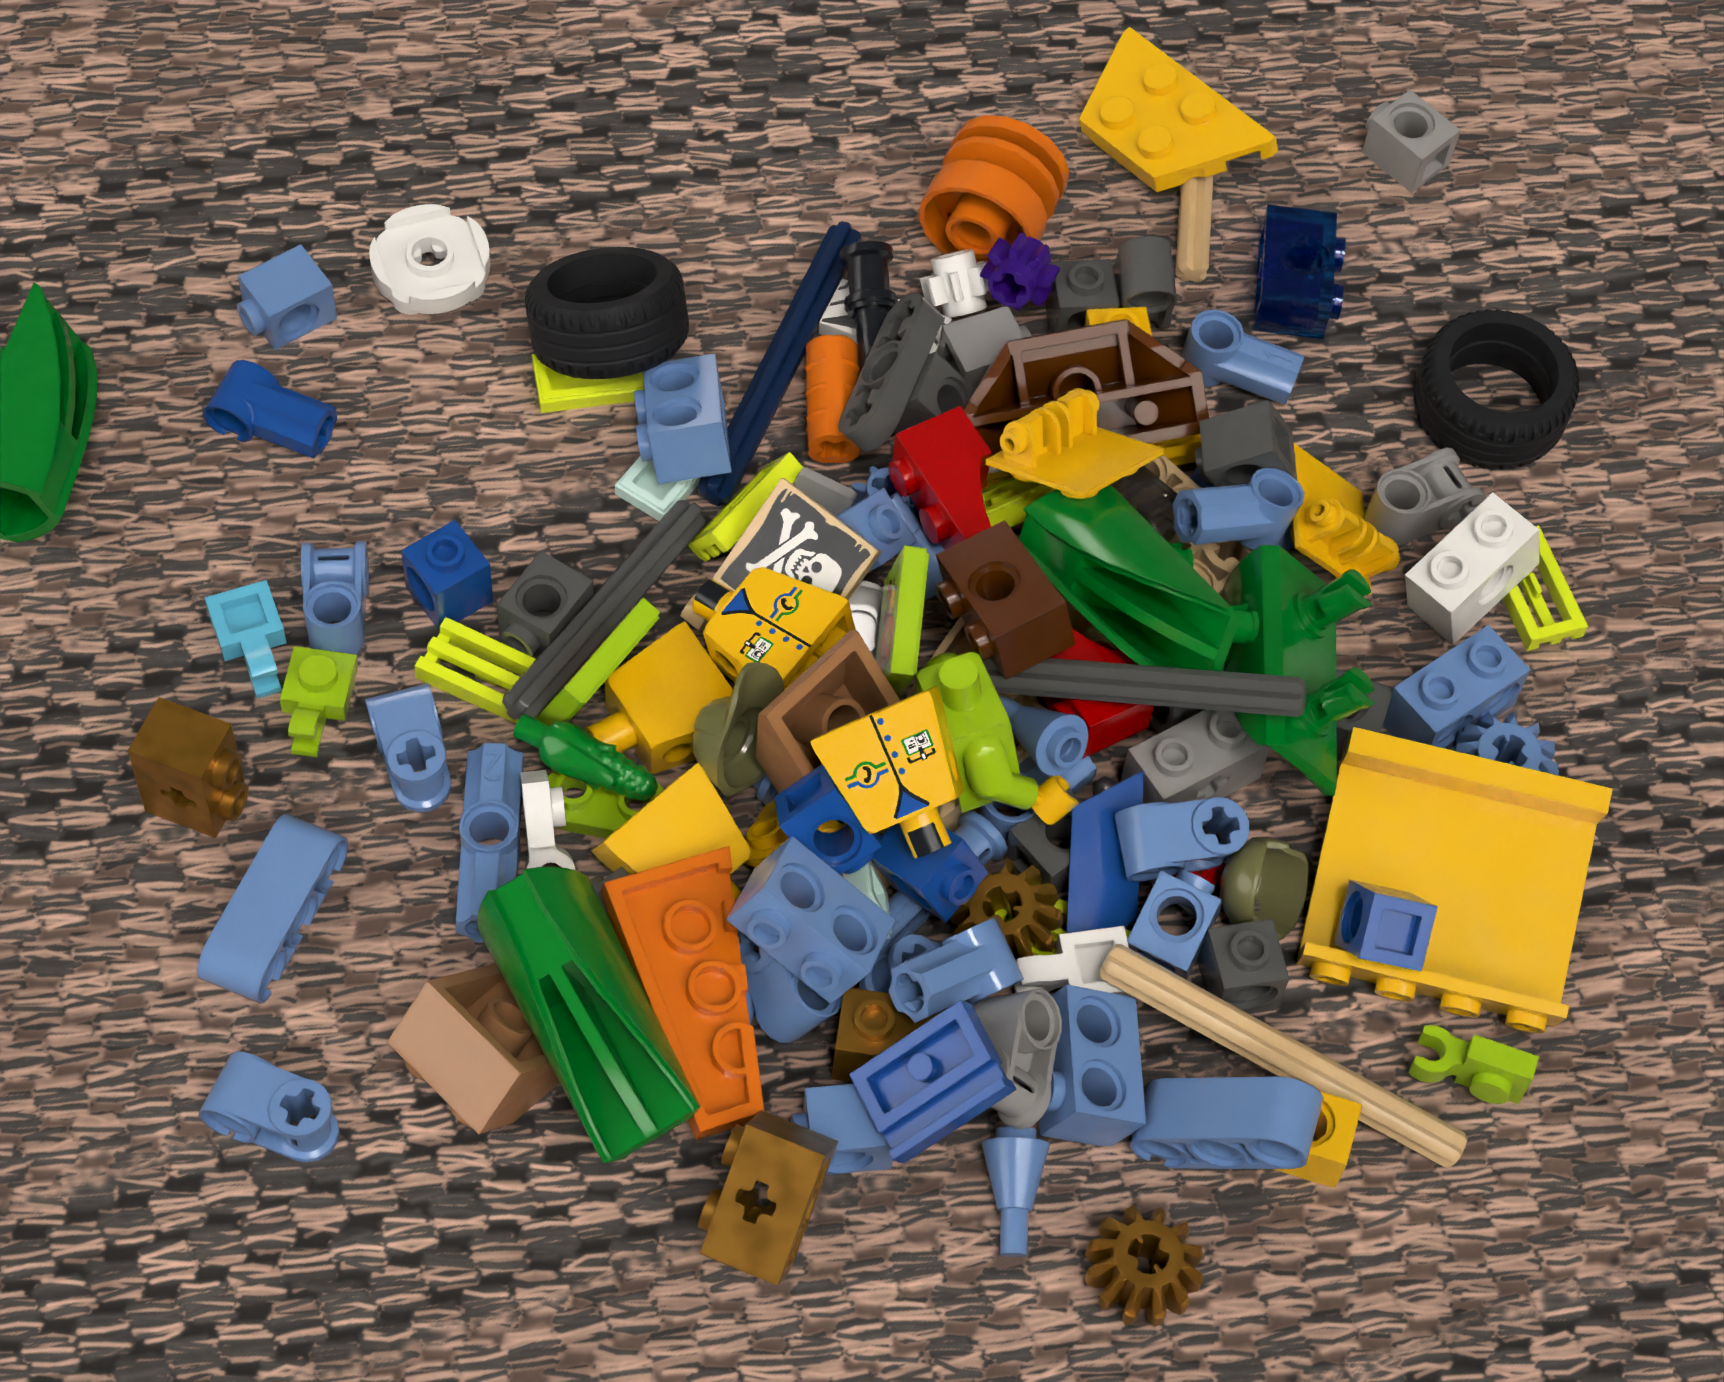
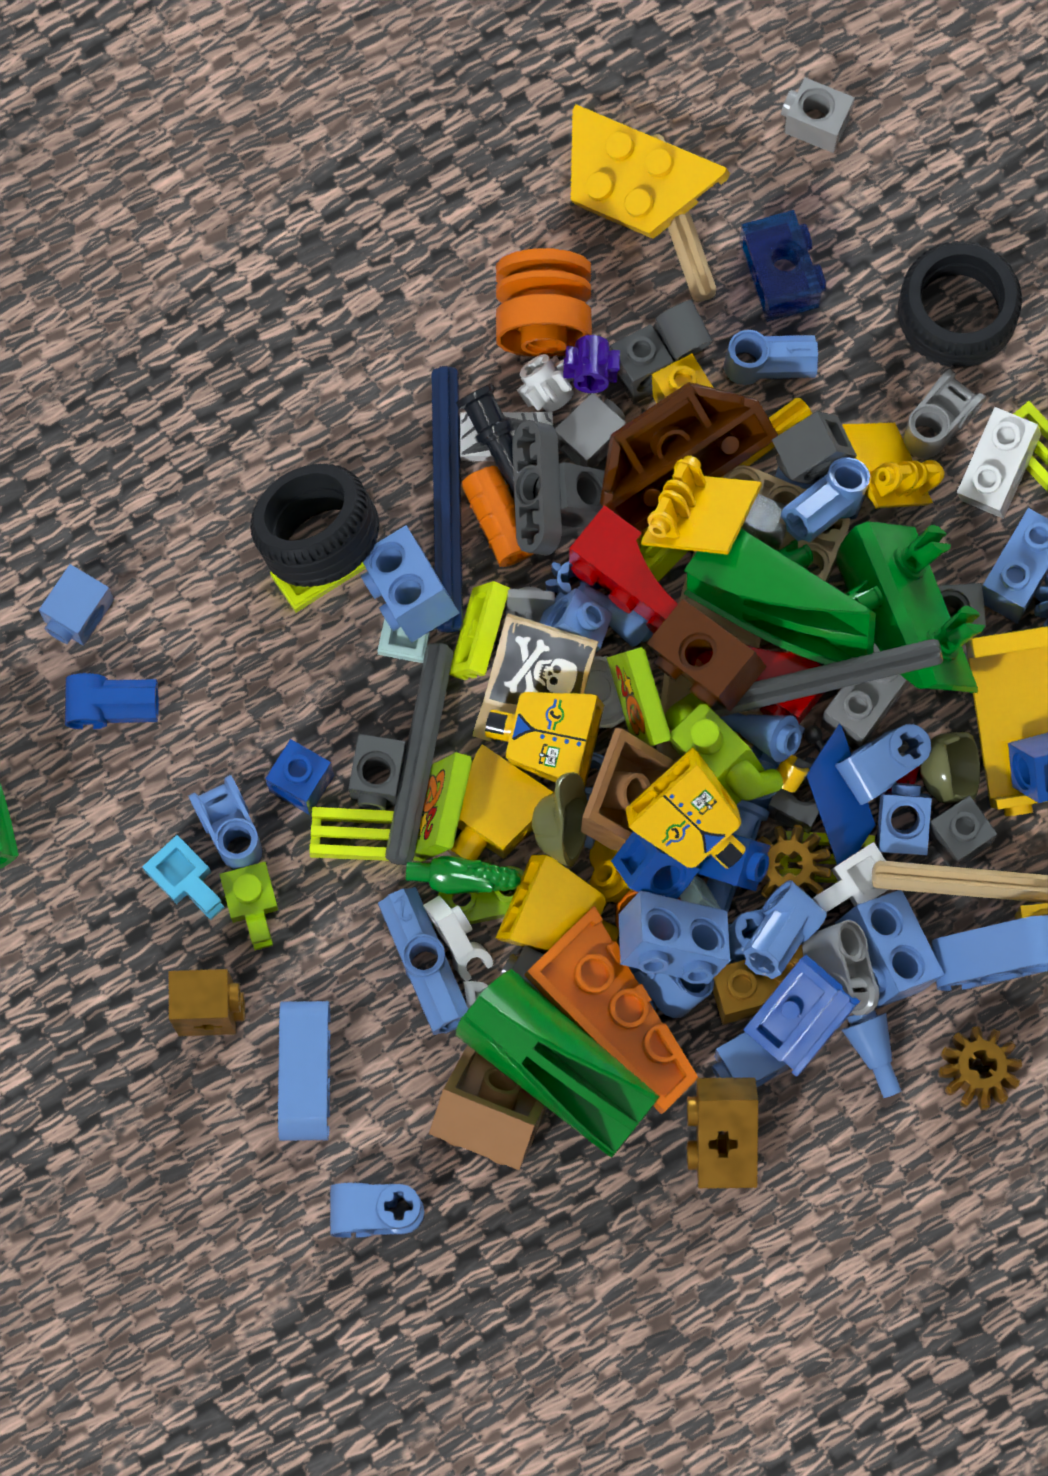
camera: 15 degrees left, 15 degrees up
(411, 741) = (332, 907): medium blue piece -> none
(434, 288) = (160, 501): white plate -> none

